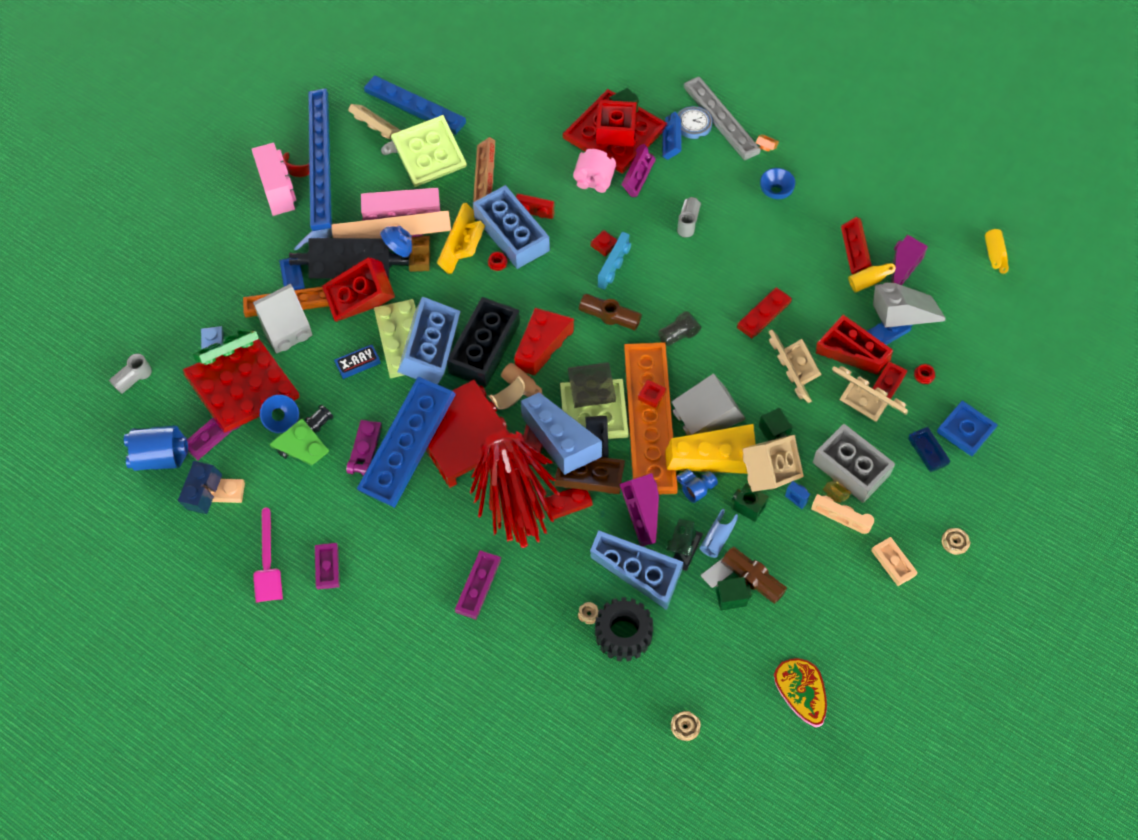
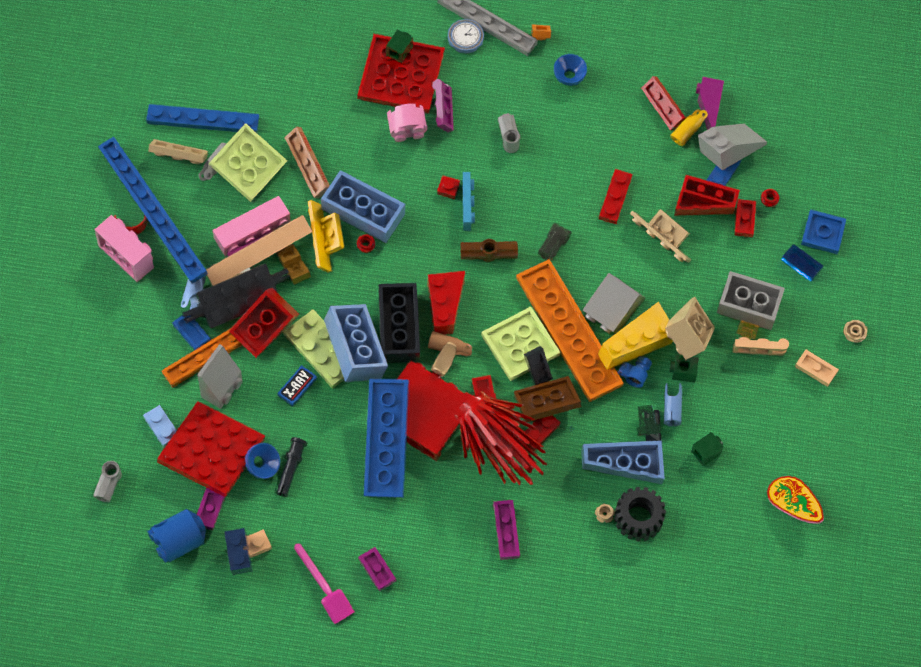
camera: 30 degrees left, 5 degrees up
(242, 339) = (183, 420): wing -> none
(300, 443) = (295, 478): bright green wing -> none
(364, 446) = (348, 457): magenta plate -> none
(397, 240) = (275, 261): blue piece -> none
(537, 206) = (373, 177): red plate -> none
(560, 434) = (508, 377): medium blue wedge -> none
(591, 385) = (510, 323): clear smoke plate -> none
(616, 123) = (405, 69): red slope -> none
(642, 503) = (604, 407): magenta slope -> none
(651, 393) = (563, 310): red plate -> none
(672, 136) = (455, 58): blue hinge -> none
(685, 718) = (726, 562): tan plate -> none
(716, 573) = (688, 431): white sticker -> none
(754, 574) = (717, 425): reddish brown piece -> none
(775, 425) = (674, 295): dark green brick -> none
(797, 494) = (719, 345): blue plate -> none
(864, 398) = (734, 241): tan bracket -> none
(997, 250) = (779, 59): yellow piece -> none

